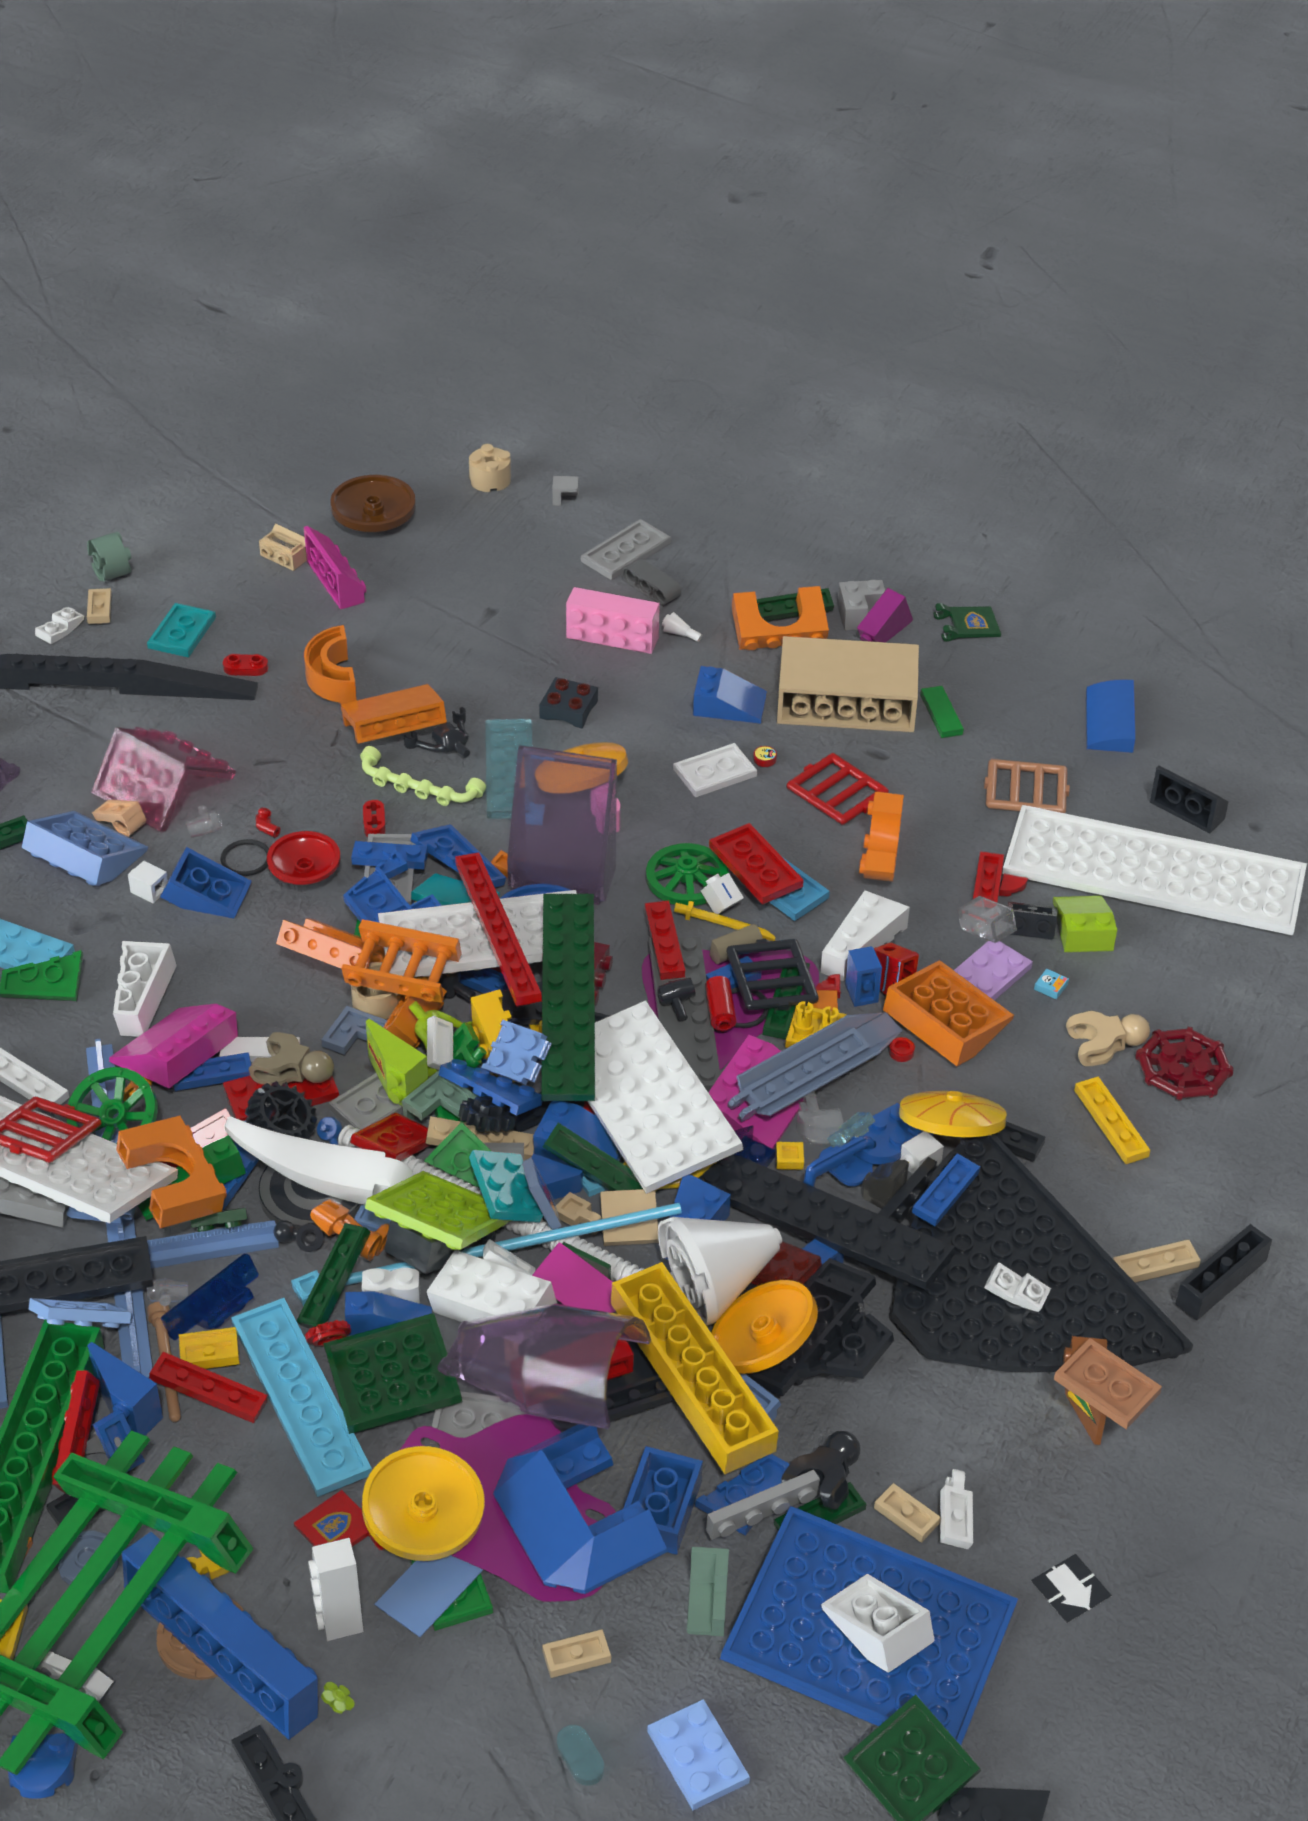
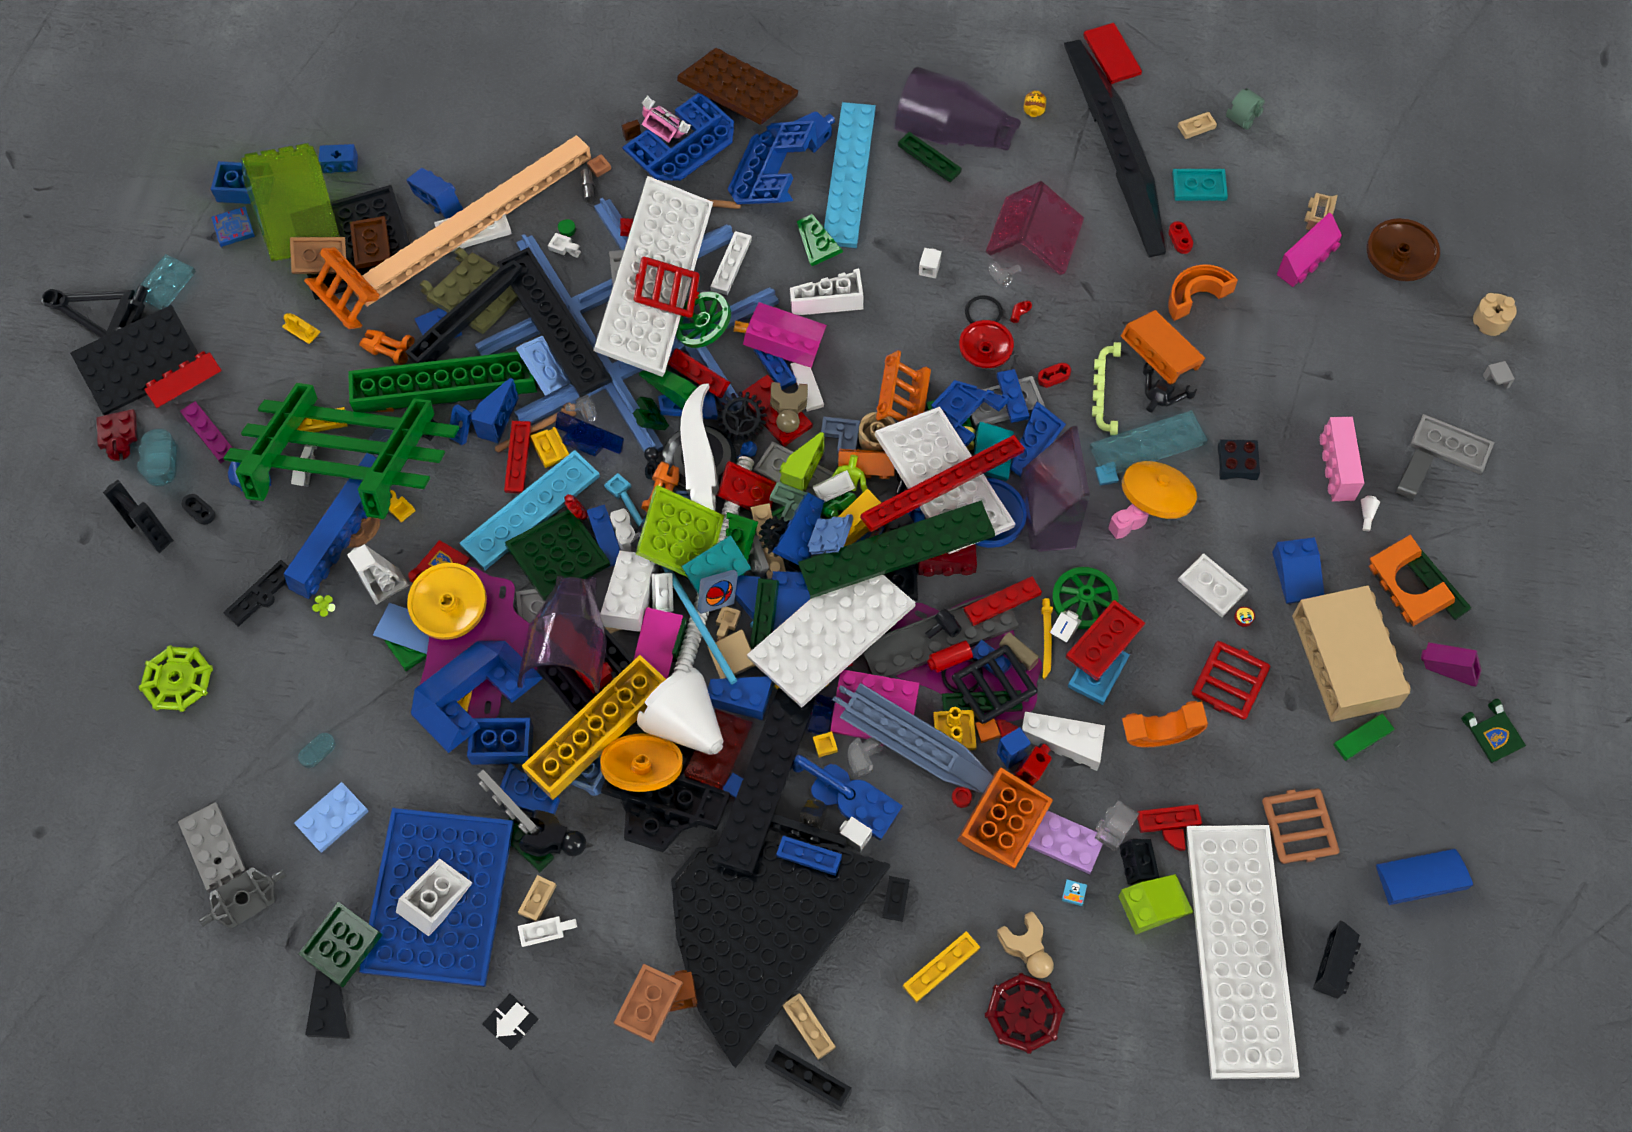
camera: 75 degrees right, 20 degrees up
(62, 624) = (1163, 111): white slope -> none
(77, 1419) = (463, 397): red plate -> none
(81, 846) = (949, 213): medium blue slope -> none
(124, 815) = (985, 222): light nougat plate -> none
(174, 1143) = (644, 391): orange arch -> none
(205, 886) = (939, 297): blue slope -> none
(333, 1276) = (618, 493): dark green tile -> none
(408, 940) = (899, 440): orange fence -> none
(576, 1653) = (382, 726): tan plate -> none
(707, 1591) = (439, 792): sand green panel -> none
(853, 1127) = (851, 777): clear light blue plate -> none
(857, 599) = (1468, 633): light grey brick -> none
(952, 1114) = (892, 845): yellow dish -> none
(1024, 1291) = (740, 927): white slope -> none

